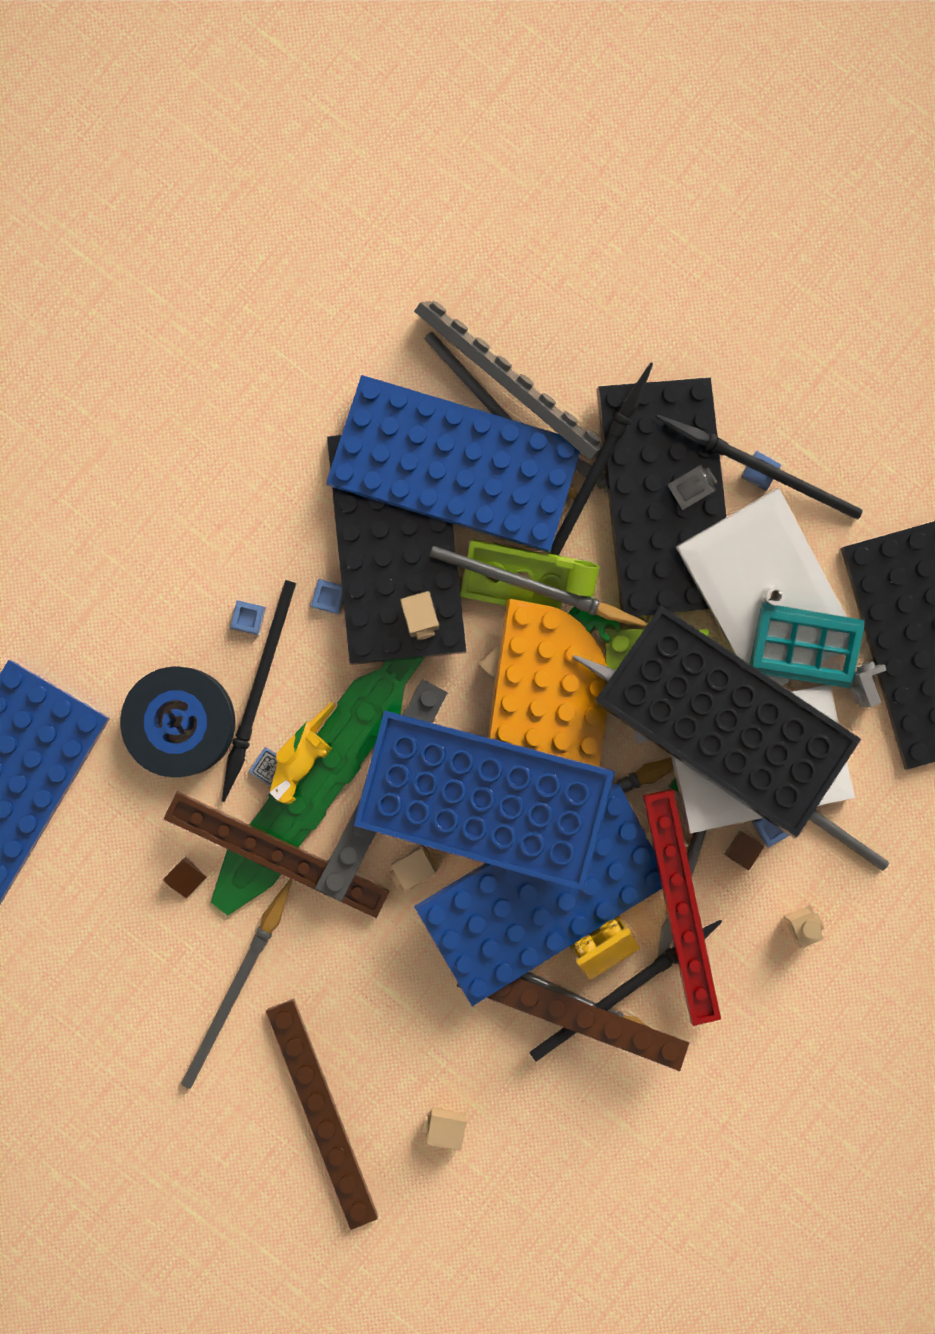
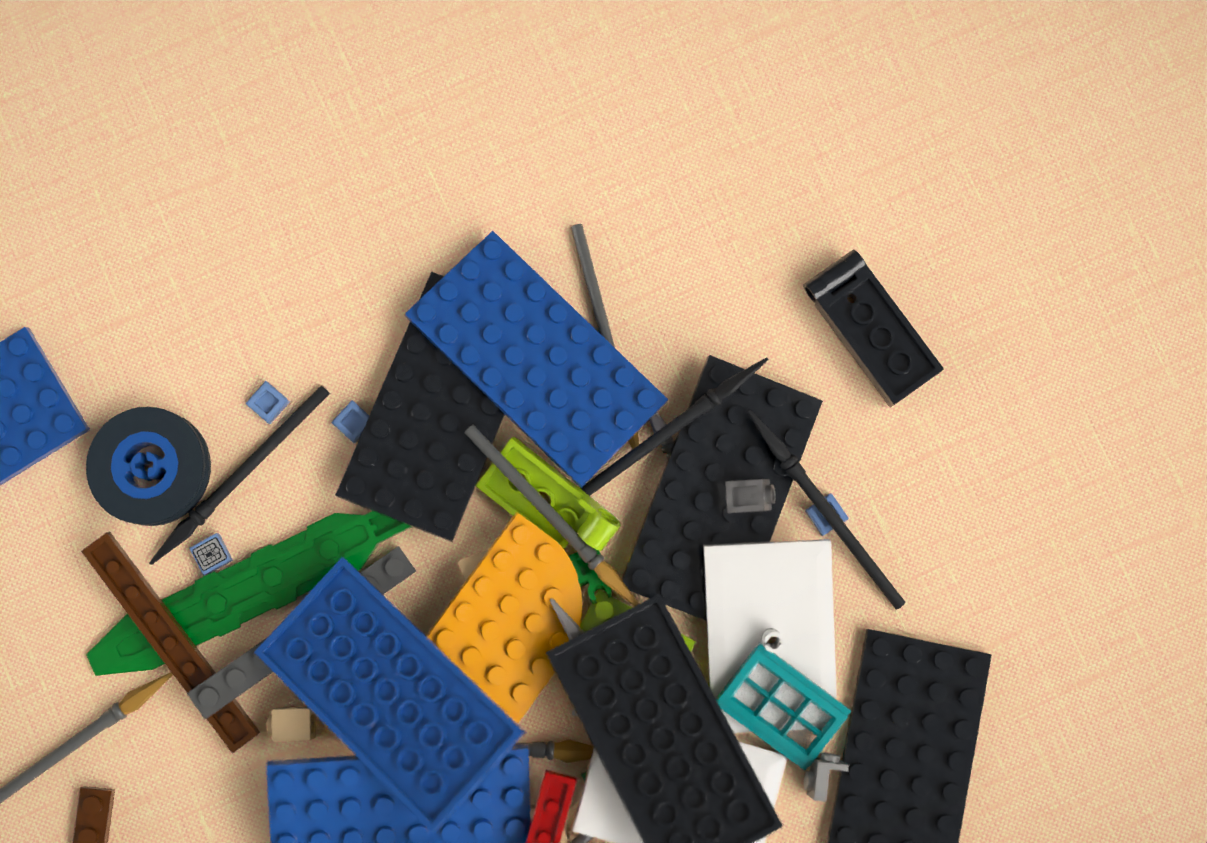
camera: 30 degrees right, 5 degrees down
(184, 877) = (75, 617): reddish brown slope -> none
(298, 757) = (241, 558): yellow animal -> none
(420, 615) = (423, 484): tan brick -> none
(517, 385) = (633, 314): dark grey plate -> none
(721, 294) = (872, 328): none -> black hinge

